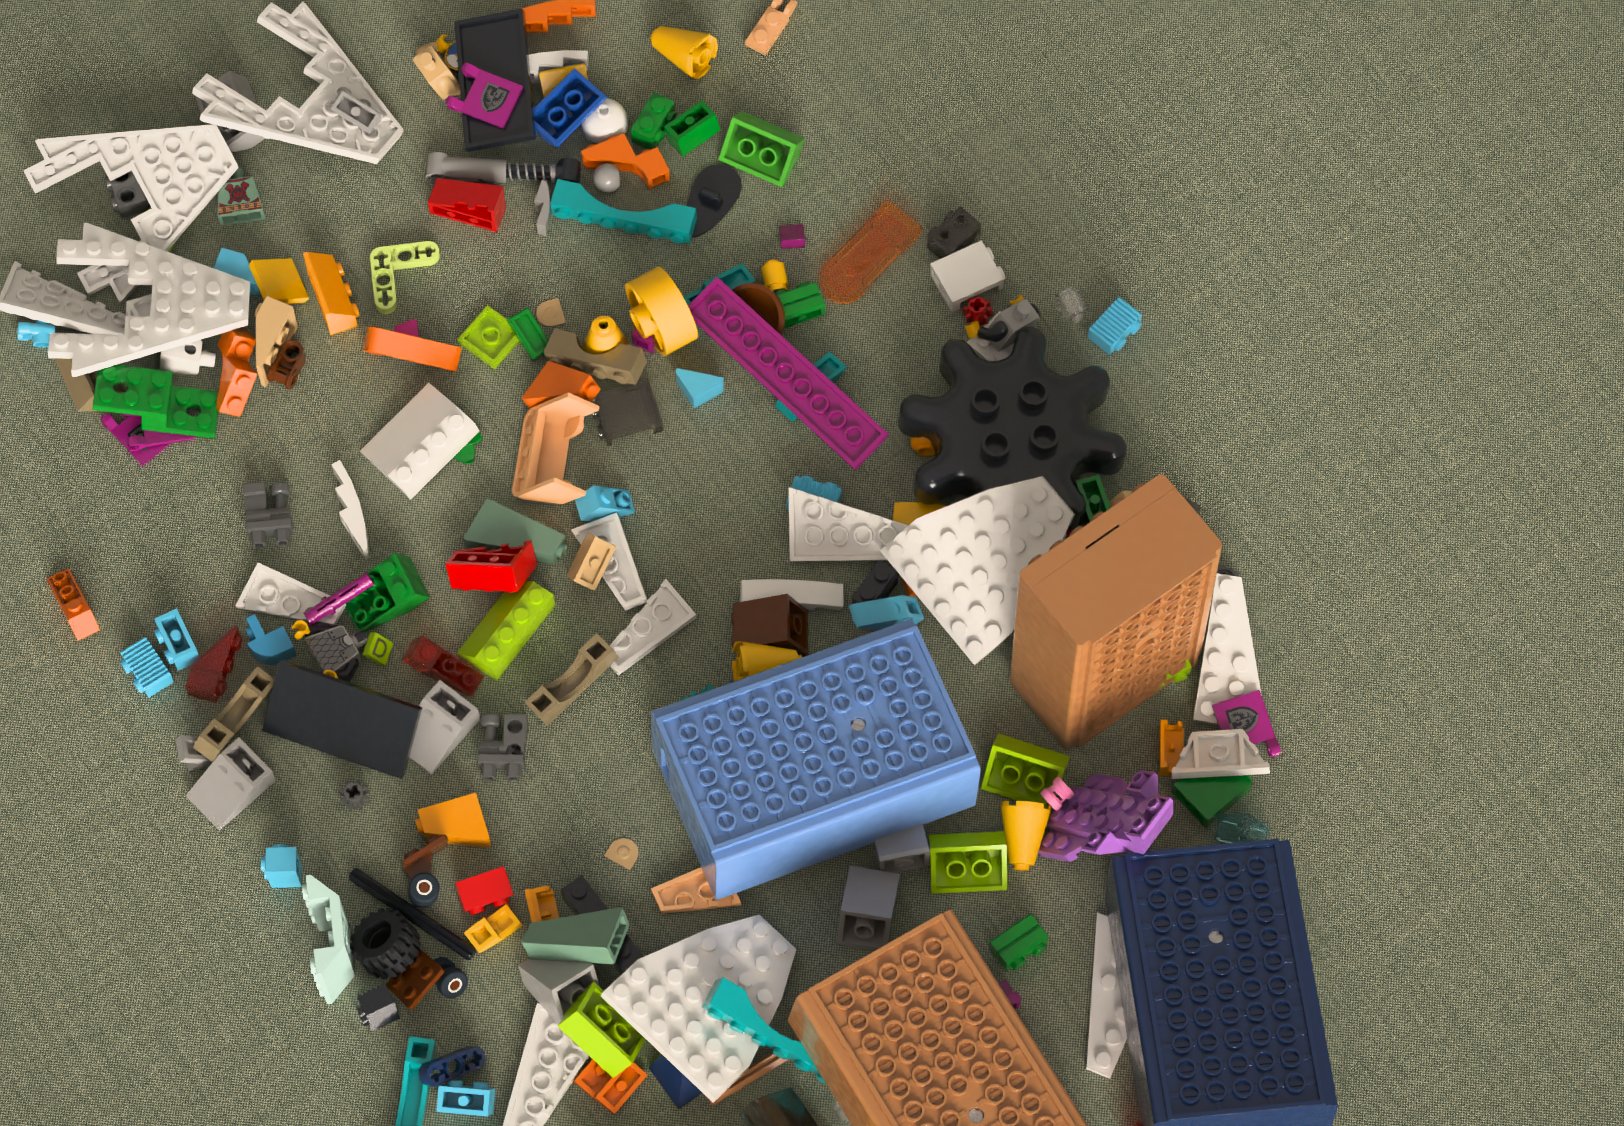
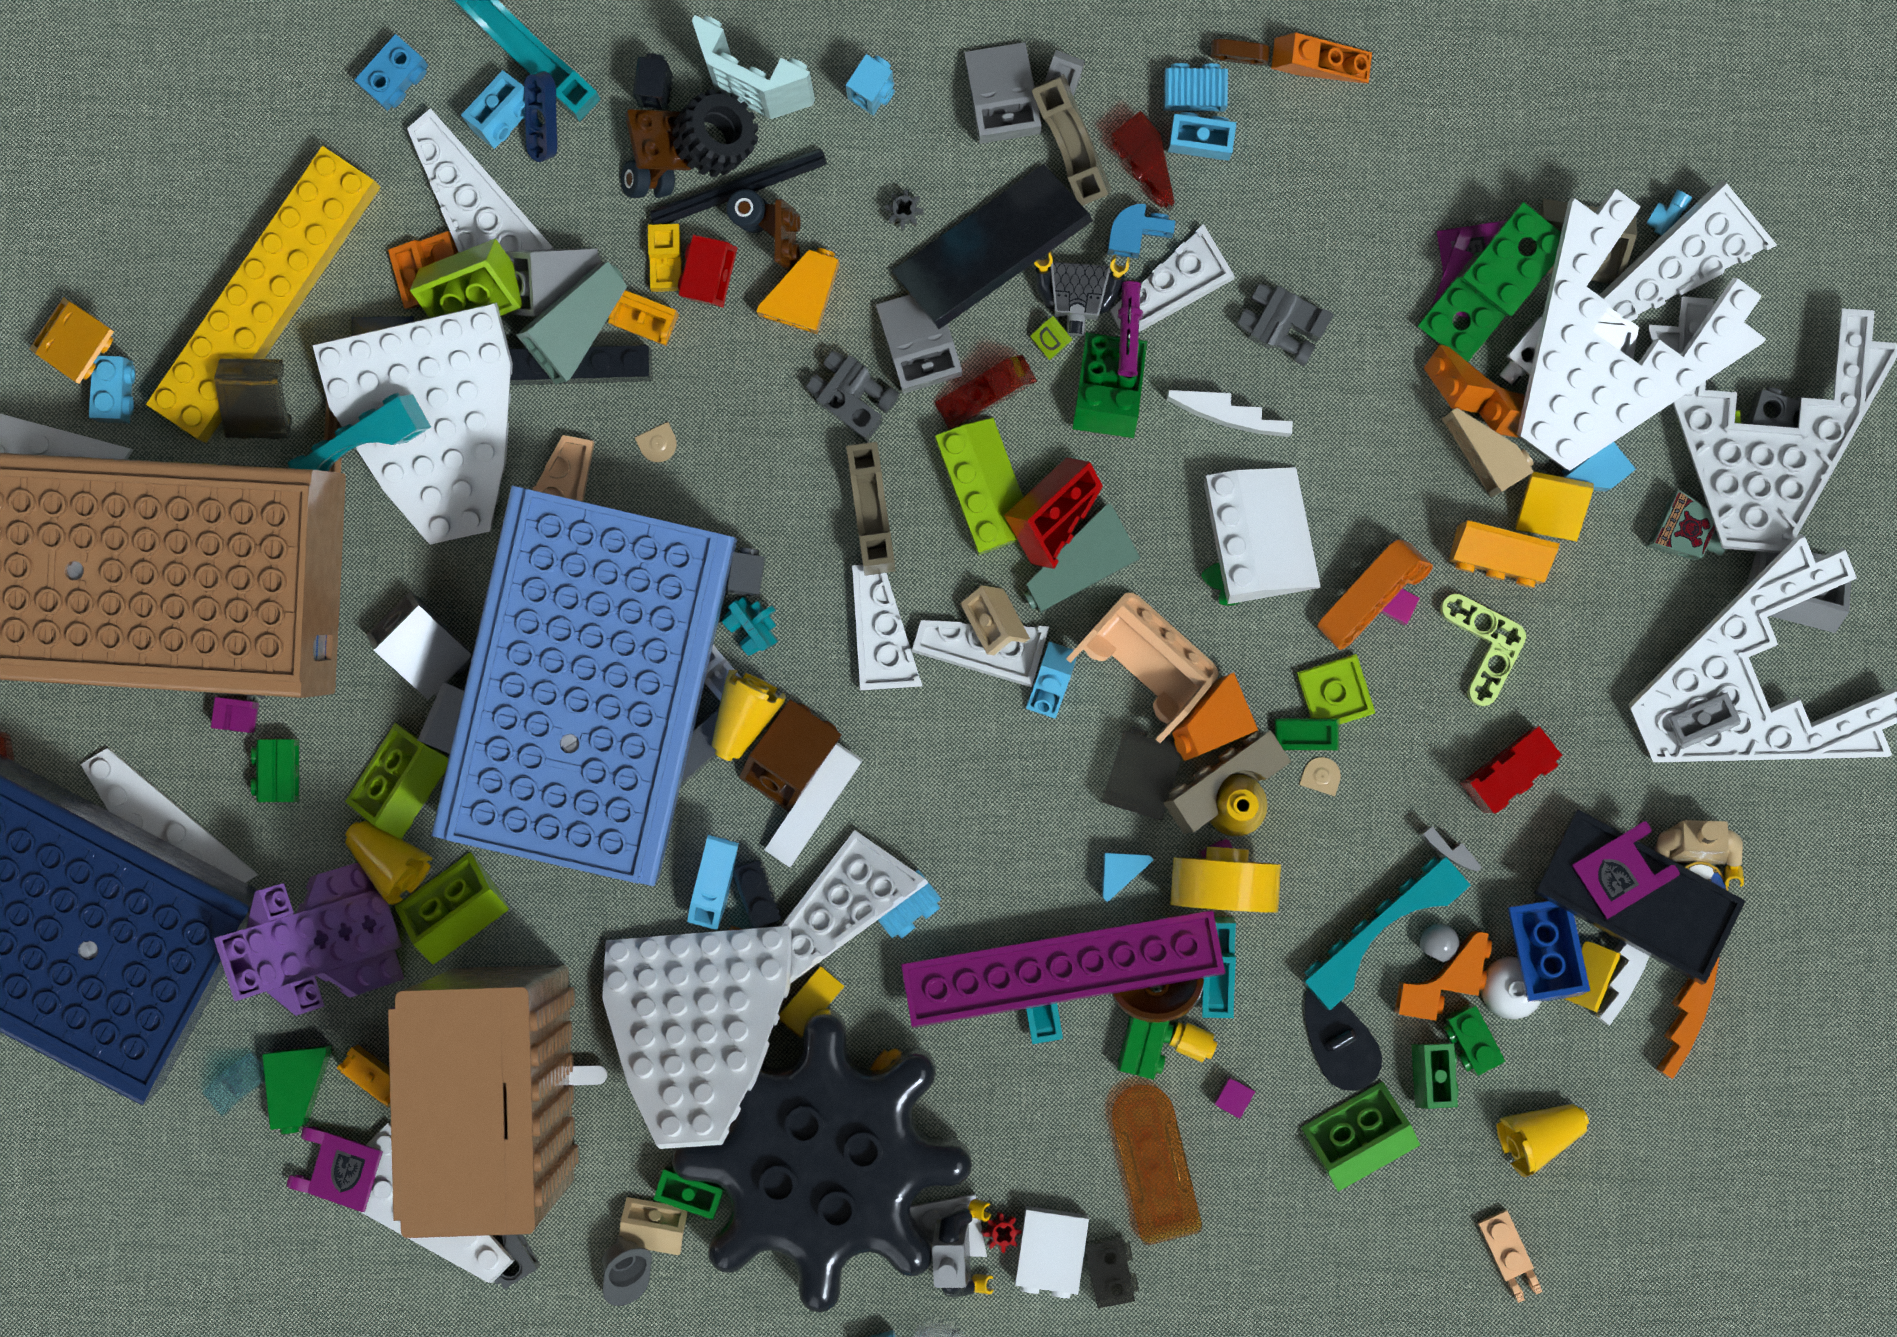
camera: 125 degrees right, 20 degrees up
(101, 656) = (1239, 52): none -> reddish brown beam
(287, 369) = (1445, 452): reddish brown piece -> none
(497, 170) = (1571, 777): piece -> none
(1061, 789) = (393, 918): bright pink wheel -> none
(1218, 755) = (318, 1116): white wing -> none

